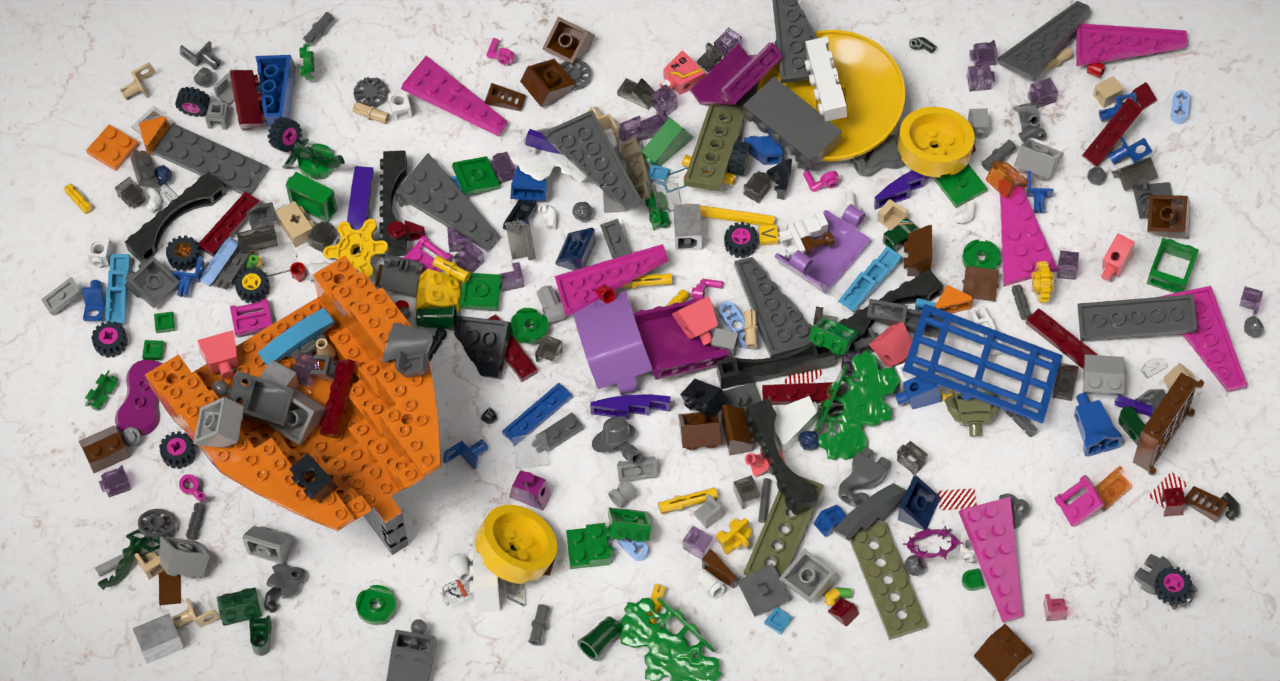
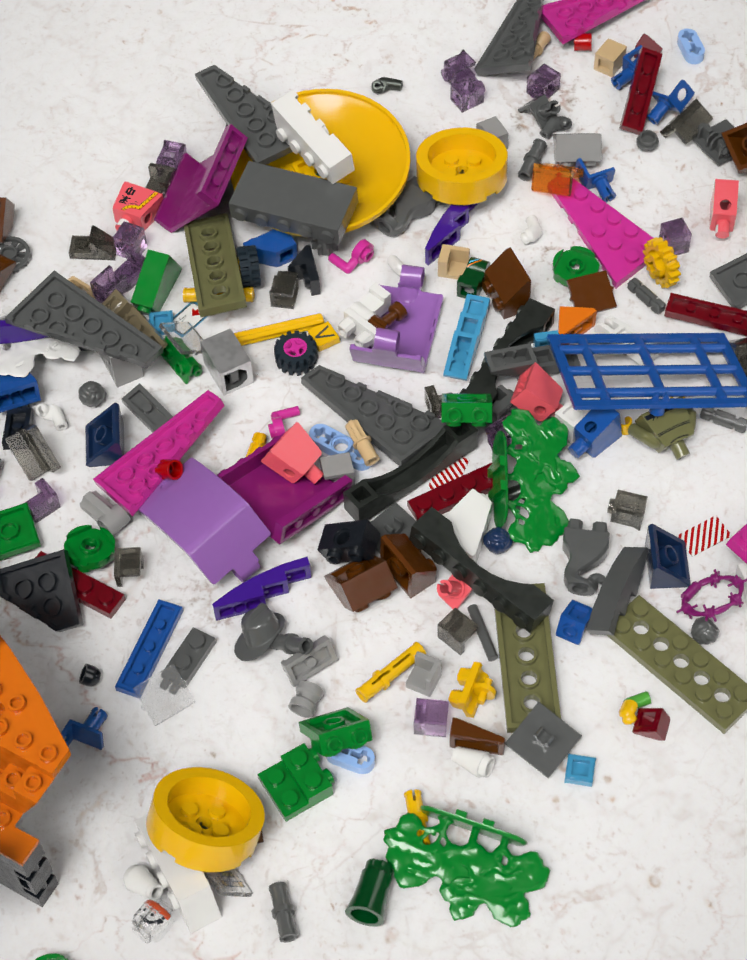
camera: 25 degrees left, 5 degrees down
(530, 490) = (188, 743): magenta torso -> none
(666, 279) = (227, 430): yellow pin -> none
(809, 576) = (591, 697): light grey slope -> none
(961, 186) = (510, 205): green plate -> none

